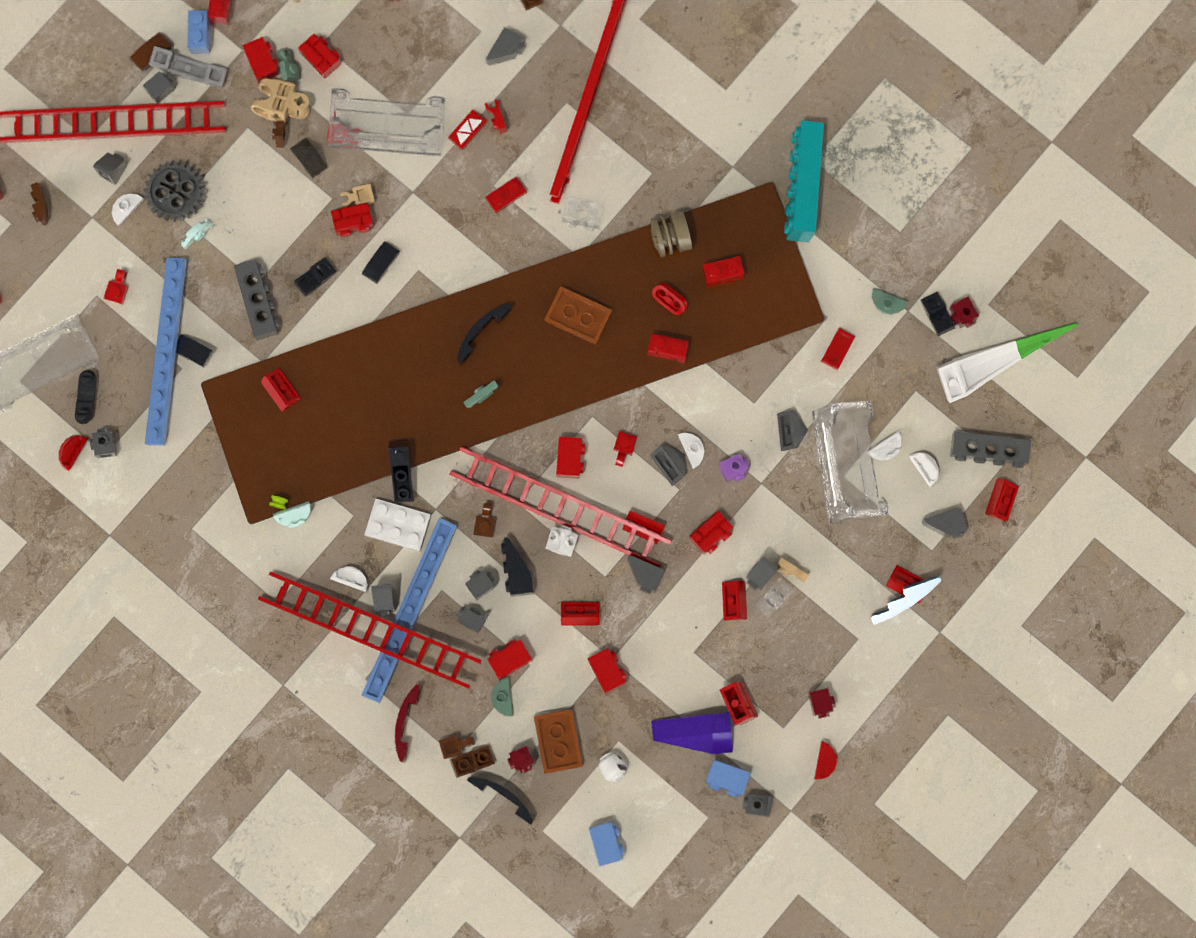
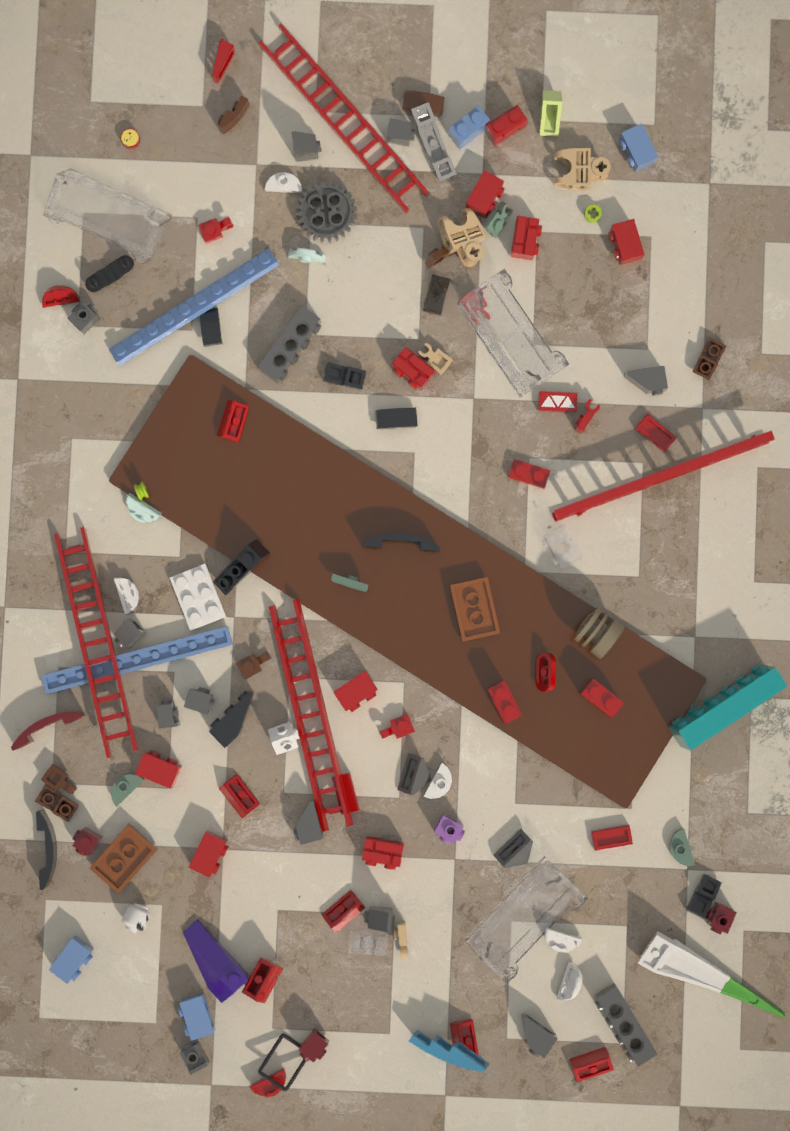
camera: 55 degrees right, 5 degrees up
(551, 74) = (655, 433): none -> red tile
(802, 743) = (269, 1056): none -> black piece

